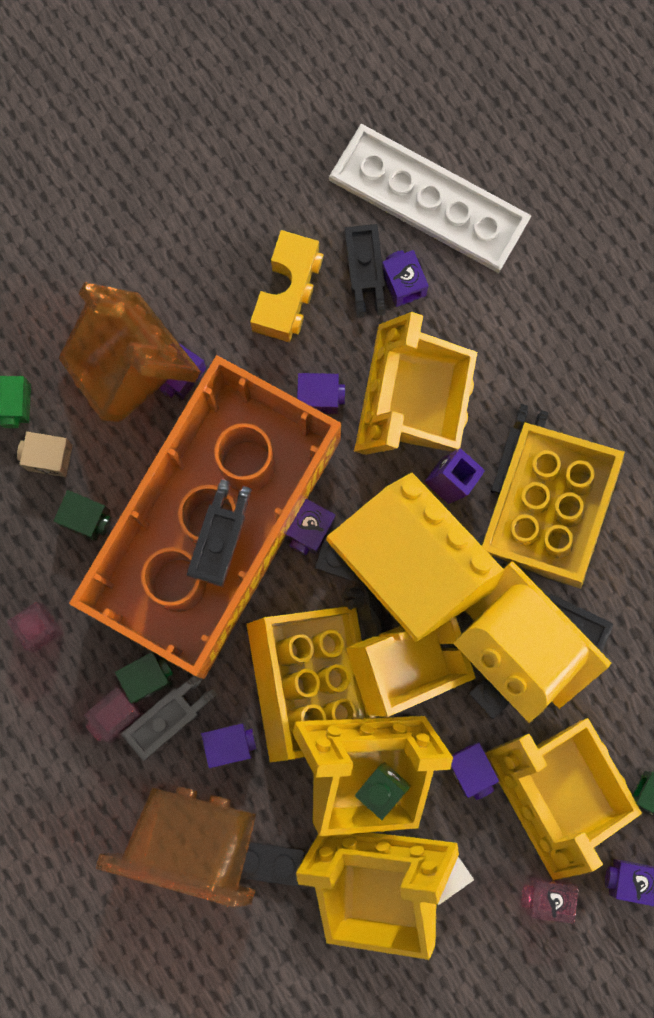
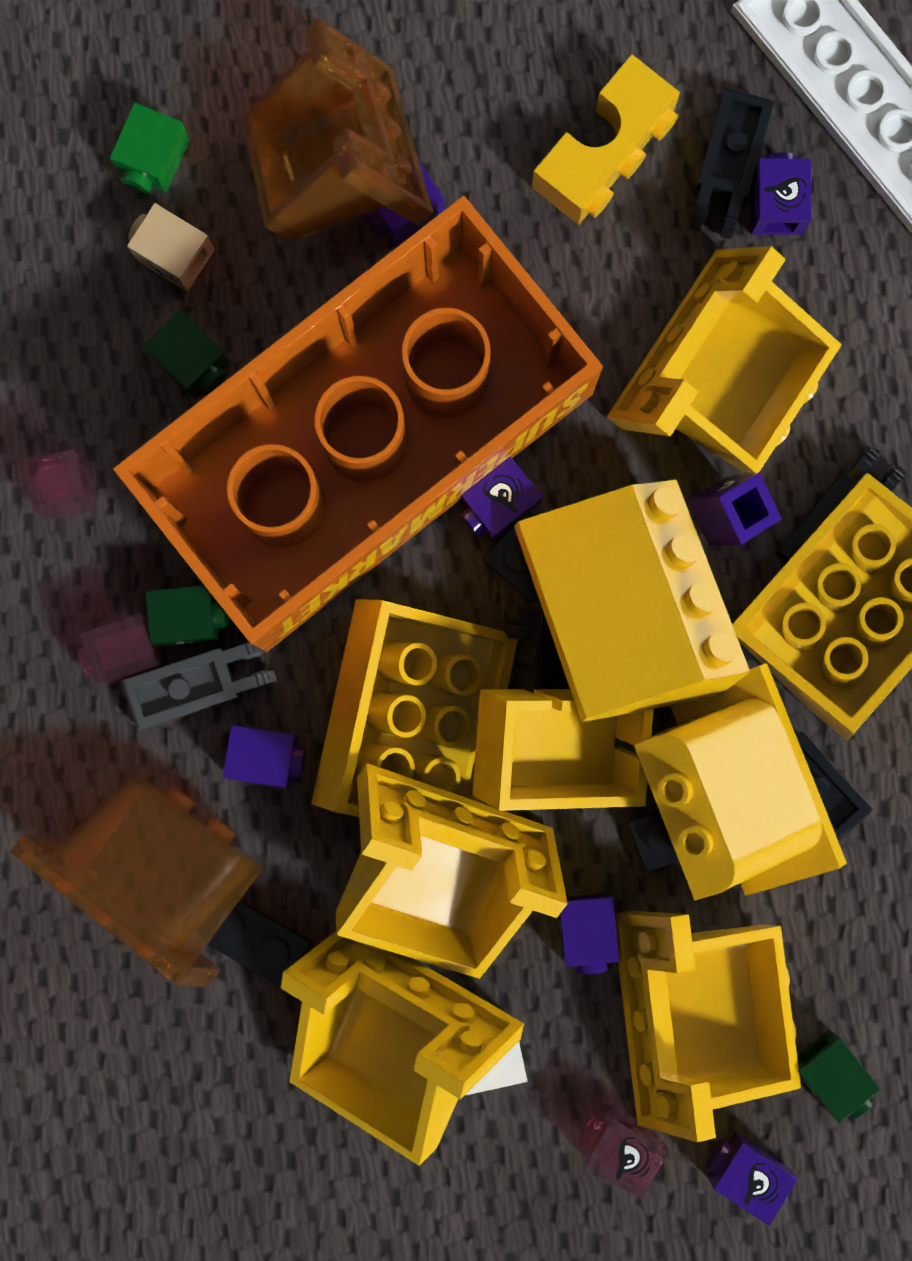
camera: 25 degrees right, 5 degrees up
(218, 537) = (361, 459): black hinge -> none
(321, 391) = (594, 312): dark purple brick -> none
(382, 790) = (450, 908): dark green brick -> none

